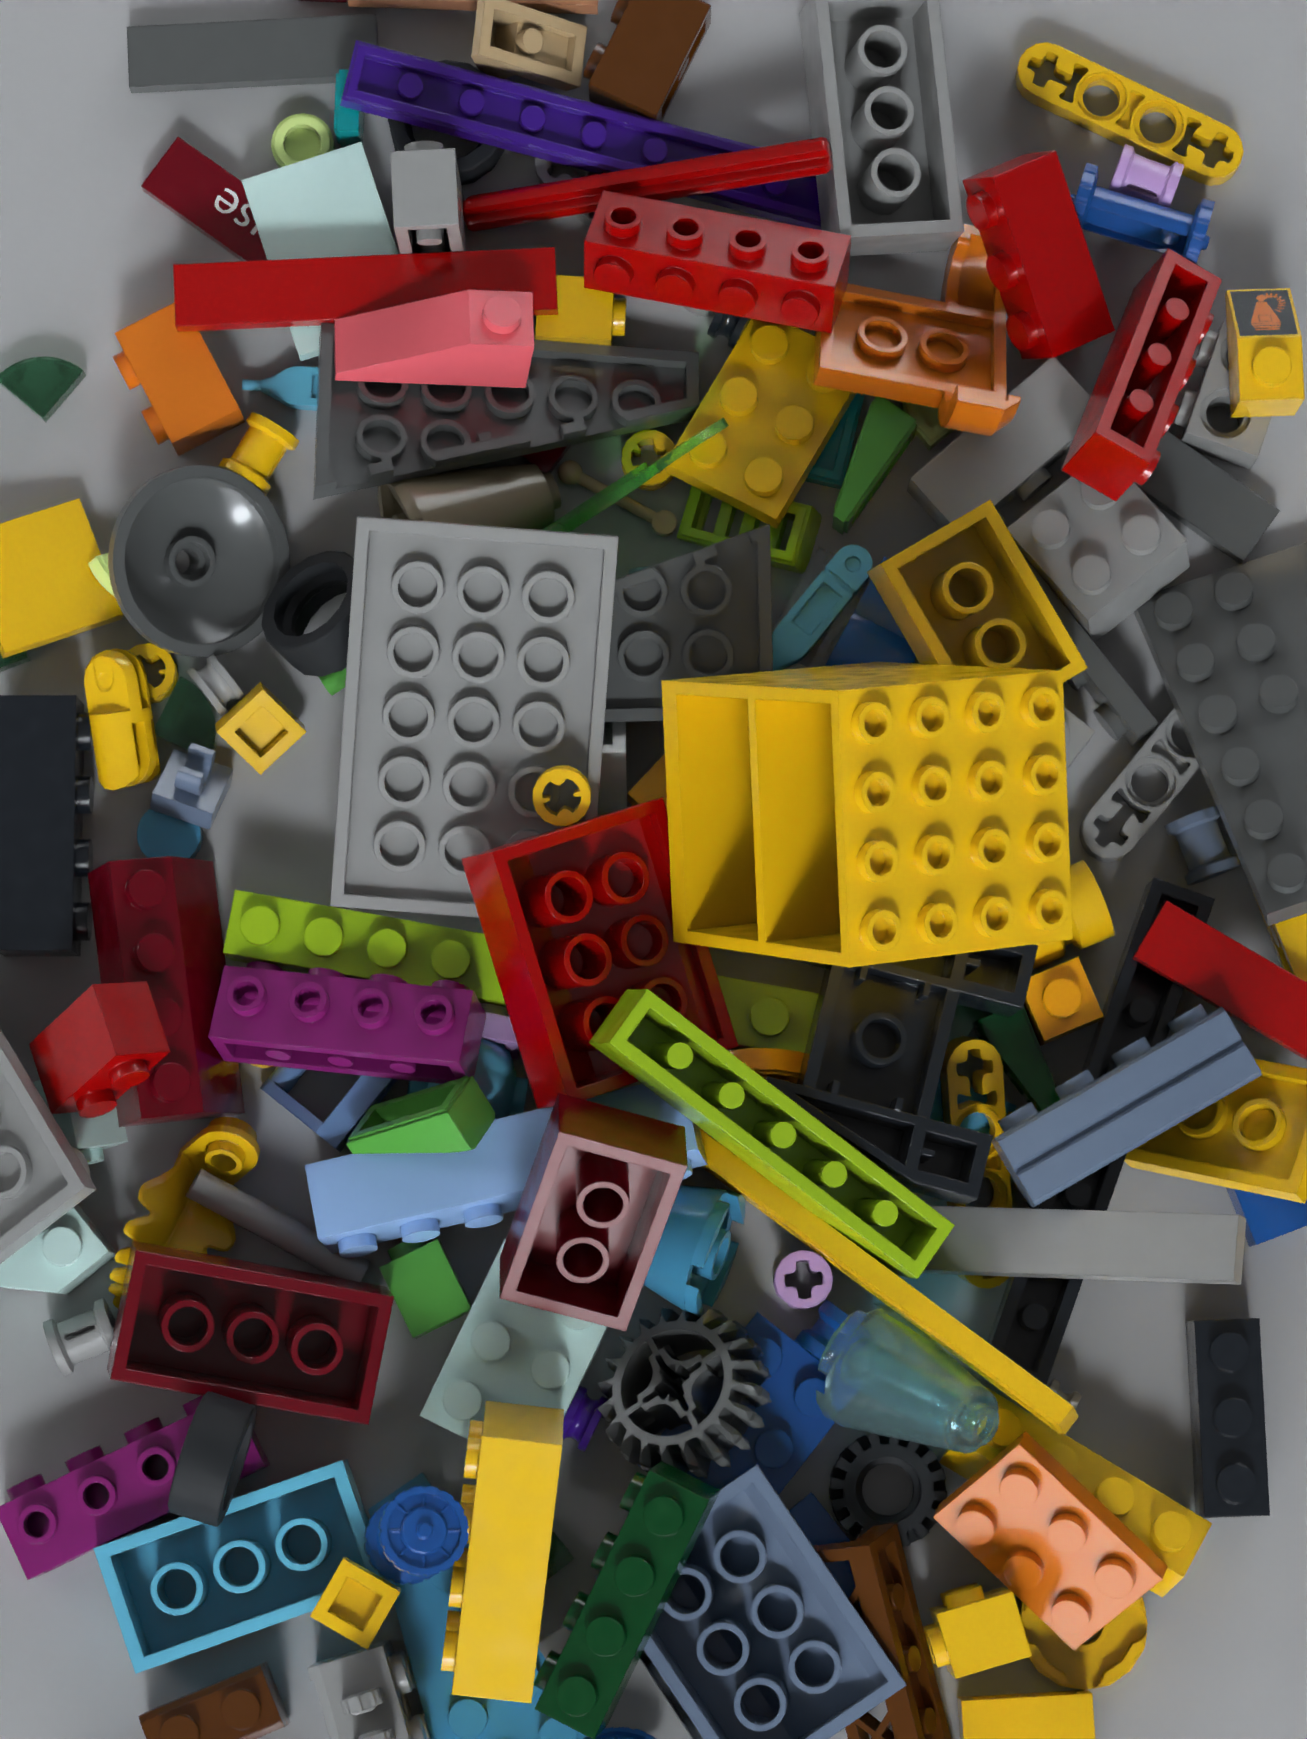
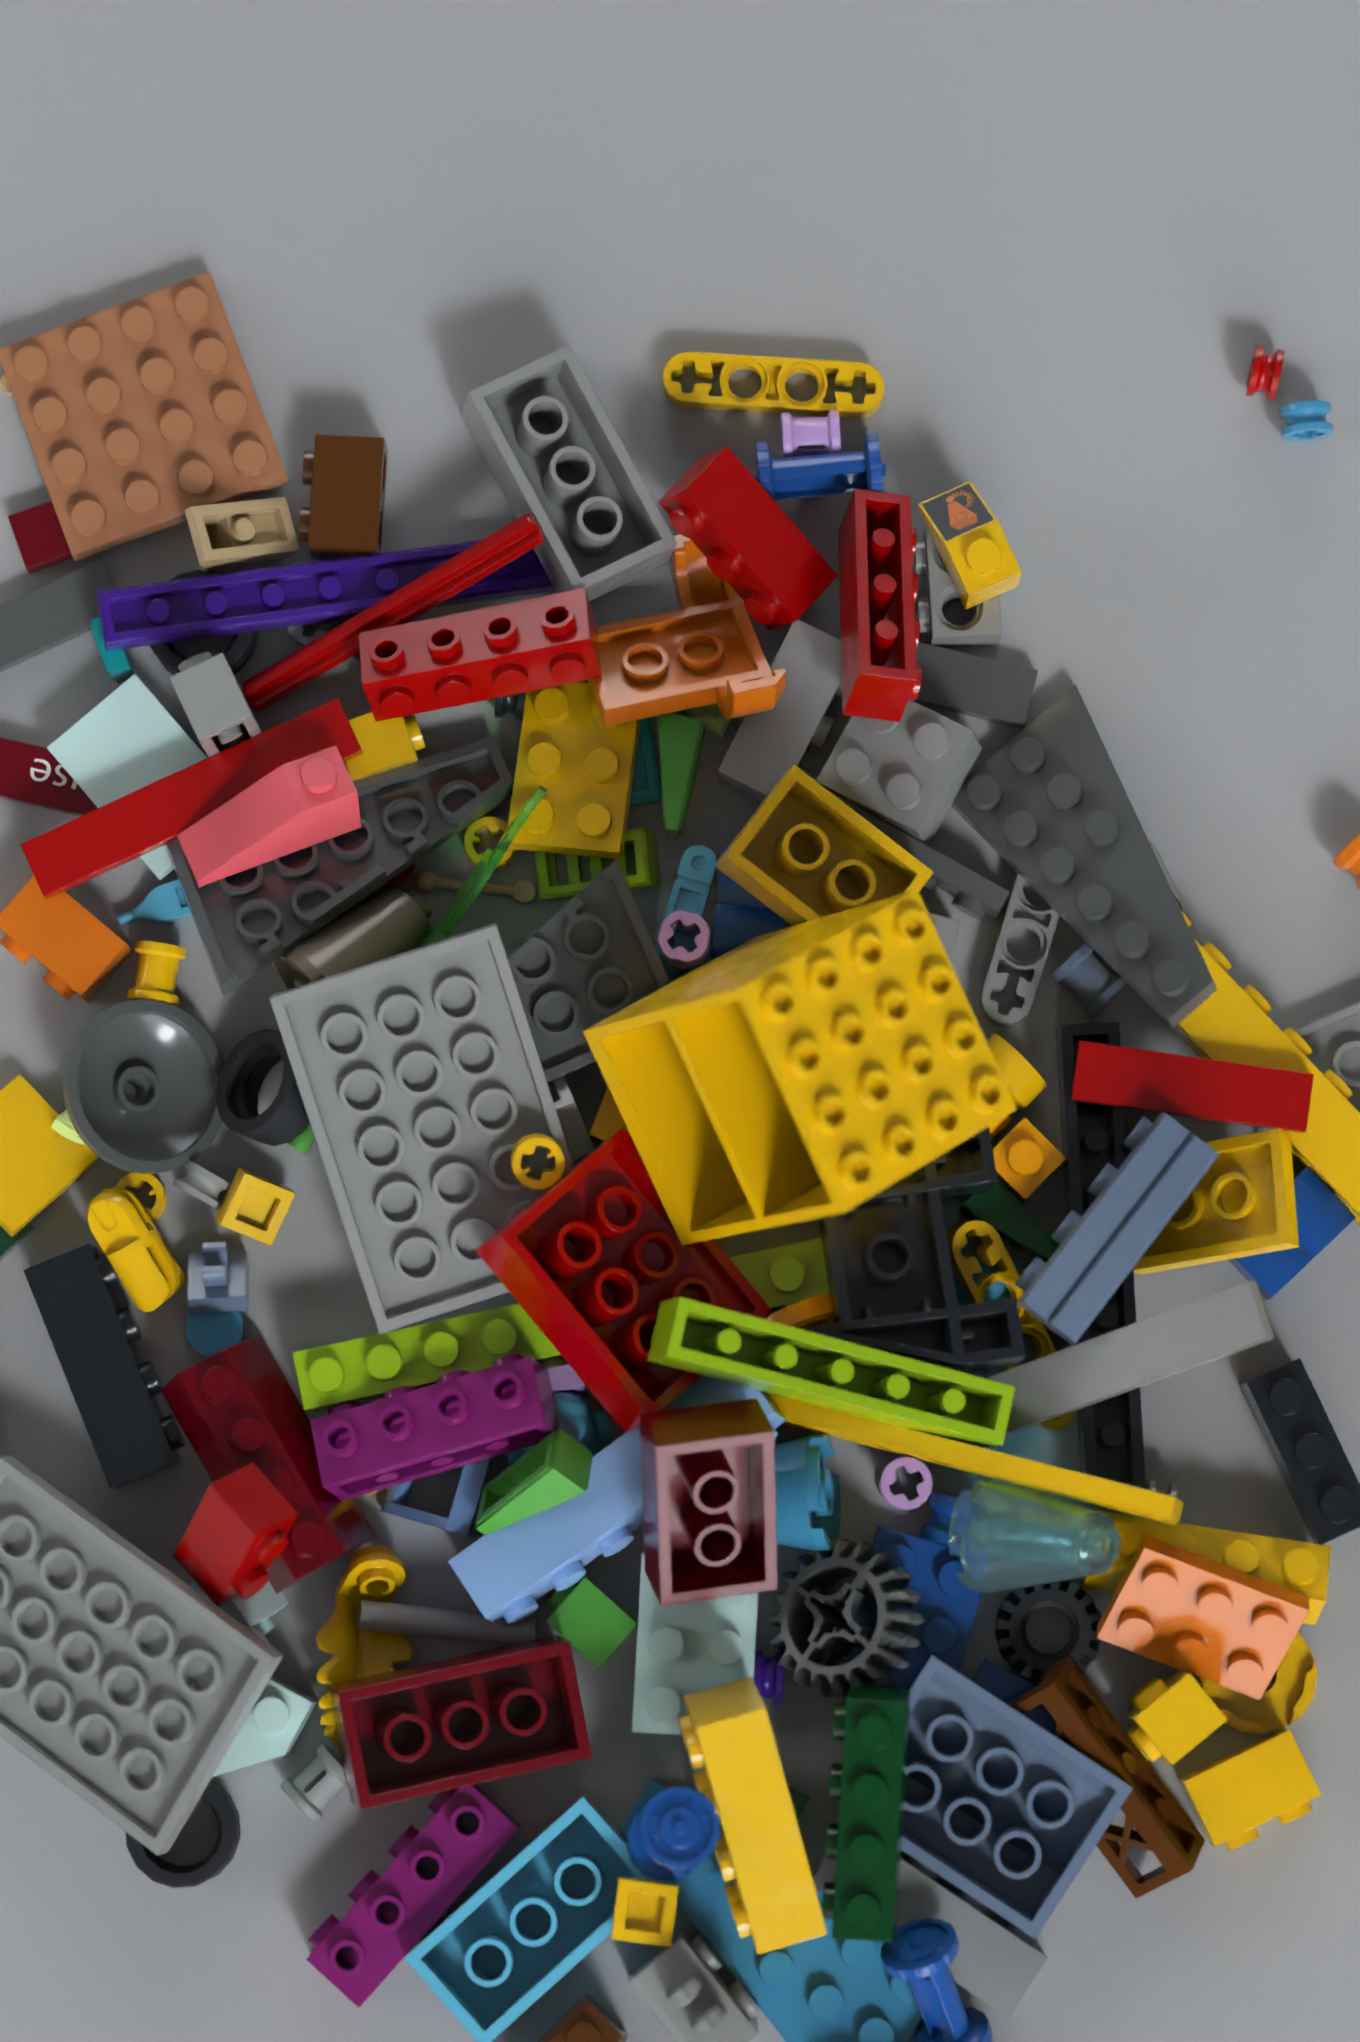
camera: 20 degrees left, 0 degrees up
(187, 718) = (189, 1223): clear green tile -> none
(212, 1458) = (474, 1841): black tyre -> none
(300, 138) = (81, 691): yellowish green tile -> none
(792, 649) = (689, 923): none -> lavender bush

